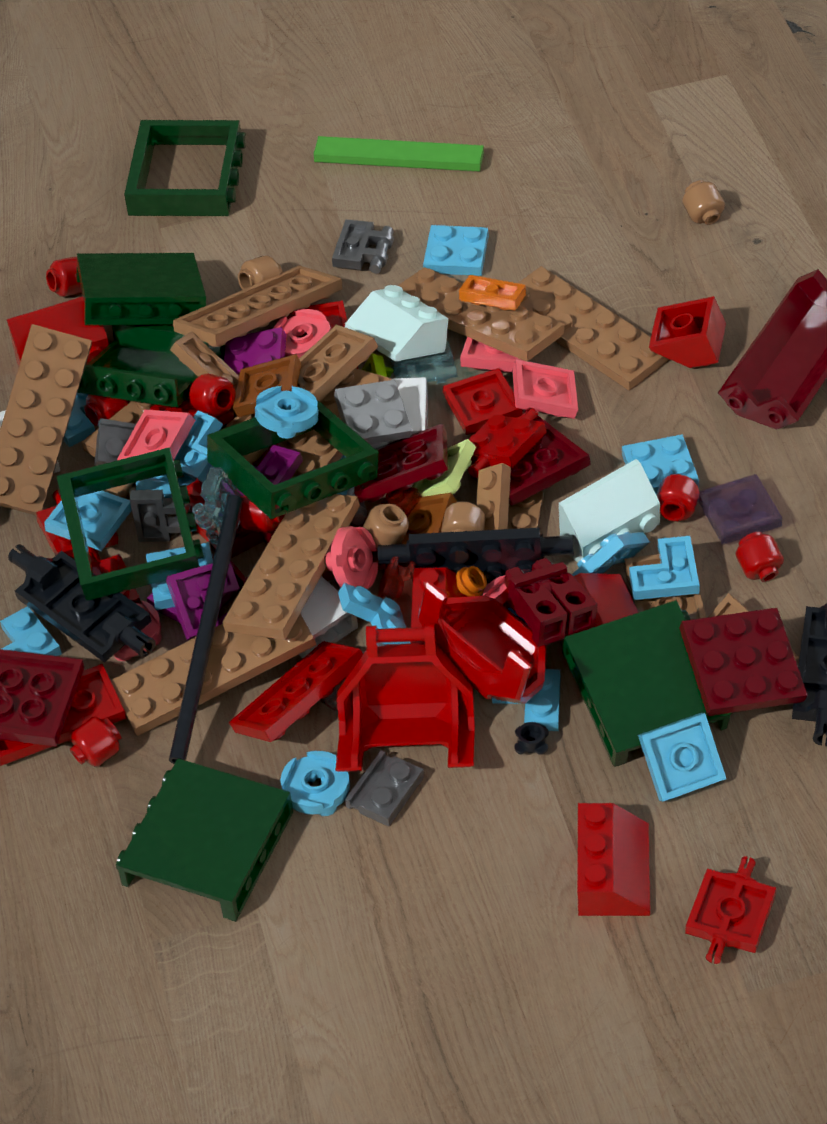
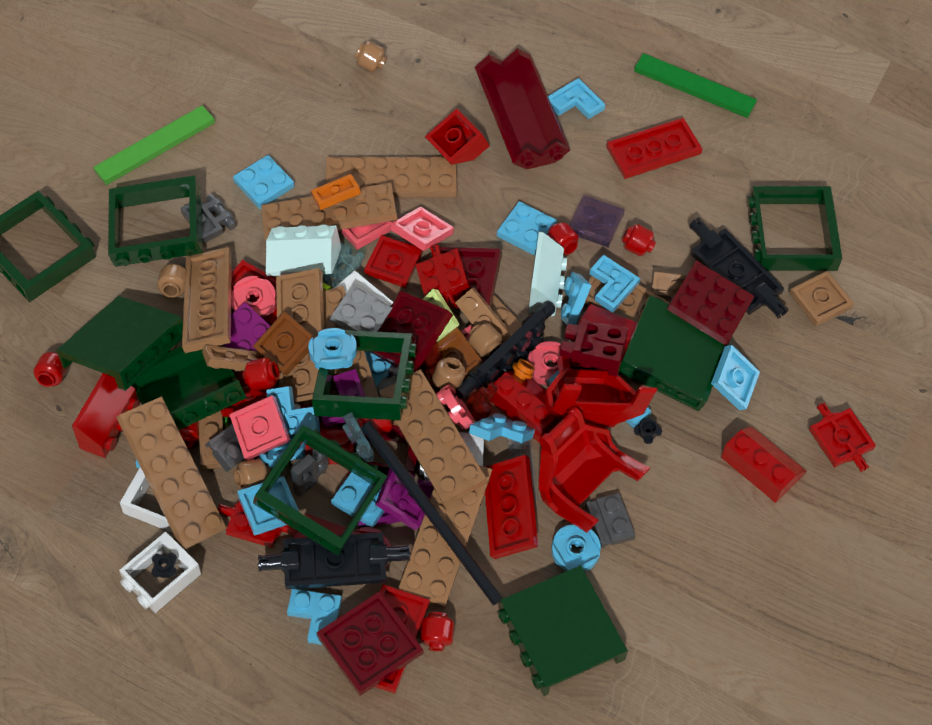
camera: 55 degrees left, 10 degrees up
(363, 210) = (152, 193): none -> dark green window

